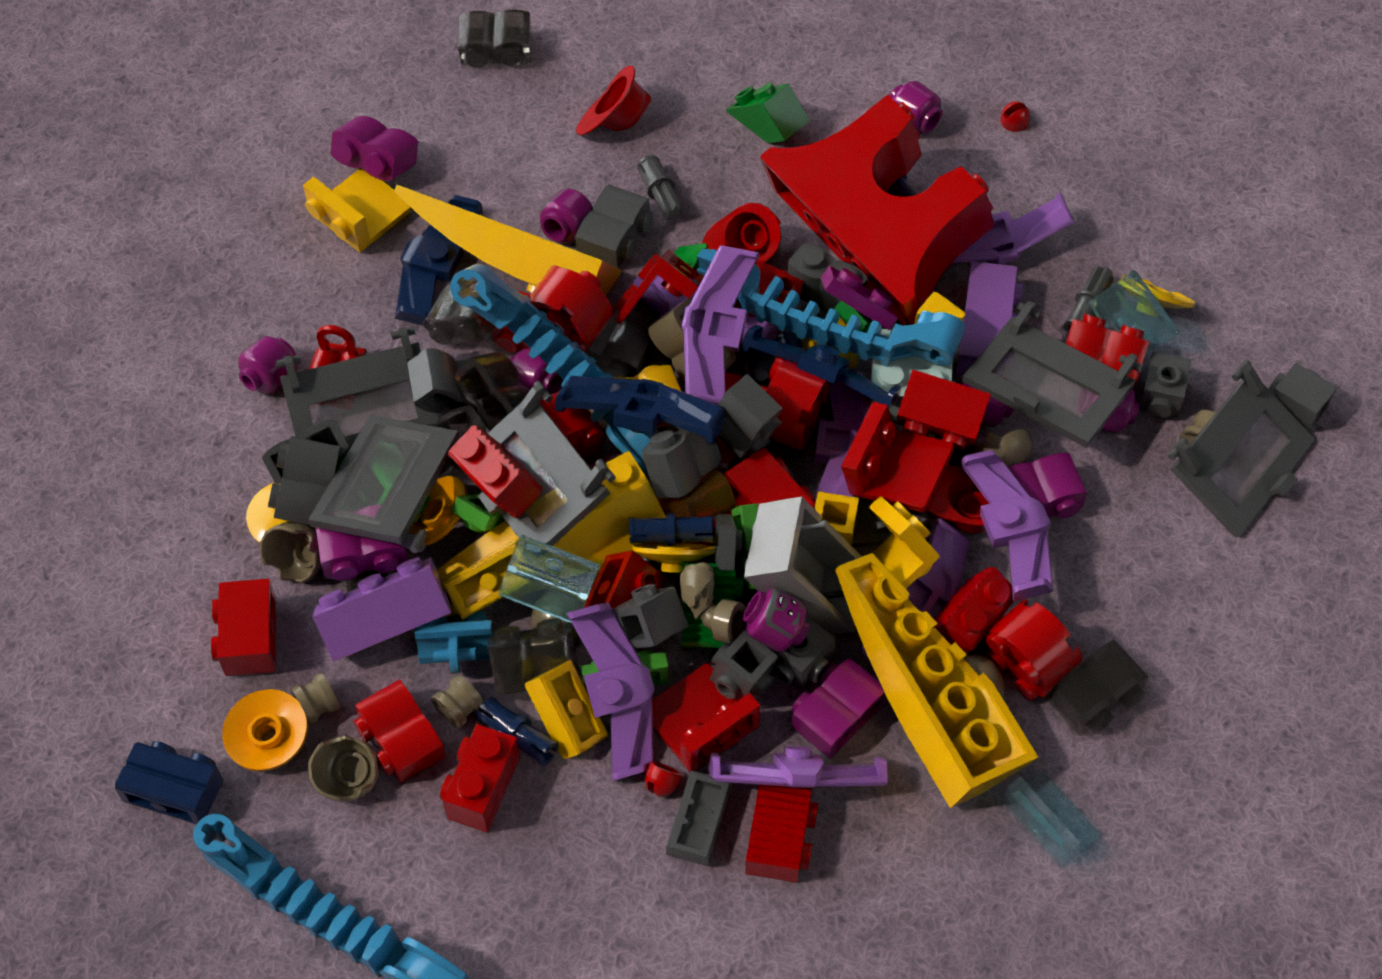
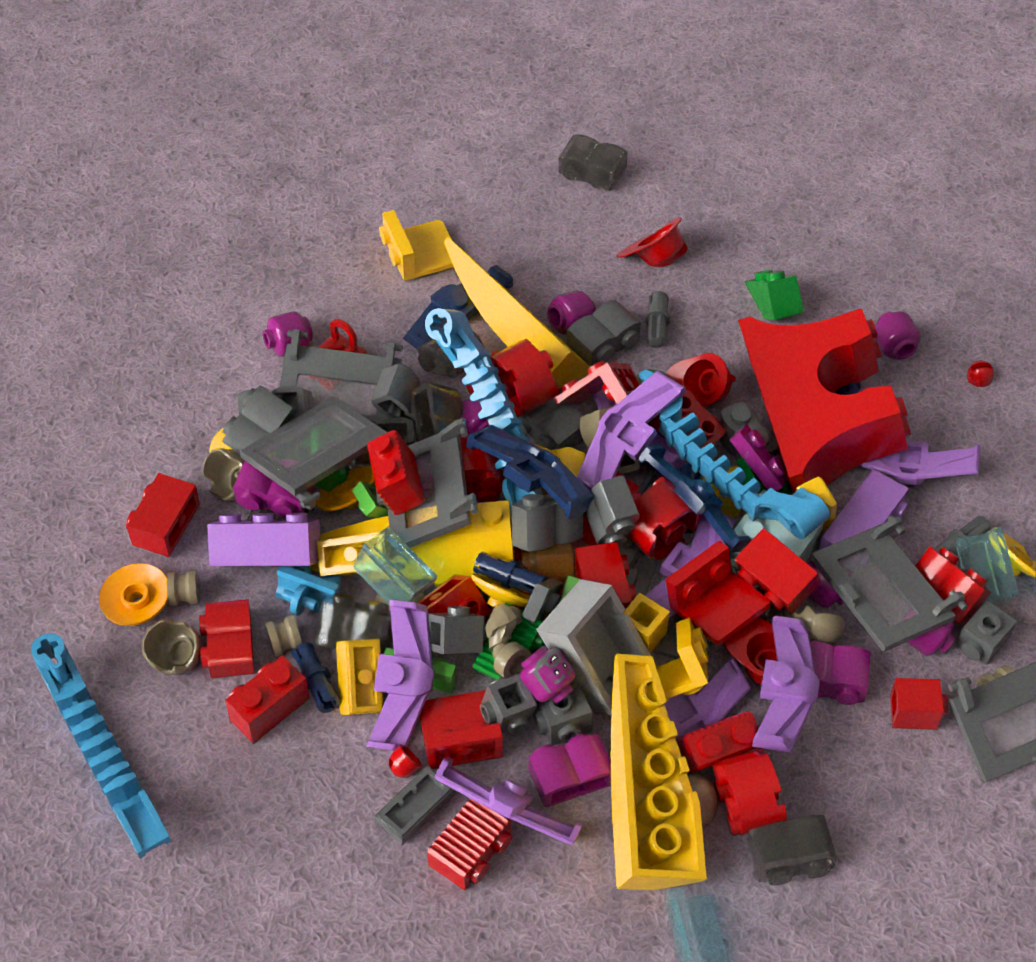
camera: 25 degrees right, 5 degrees down
(169, 782) = (46, 601): dark blue brick -> none
(375, 148) = (455, 208): magenta brick -> none
(1139, 486) = (917, 703): none -> red brick

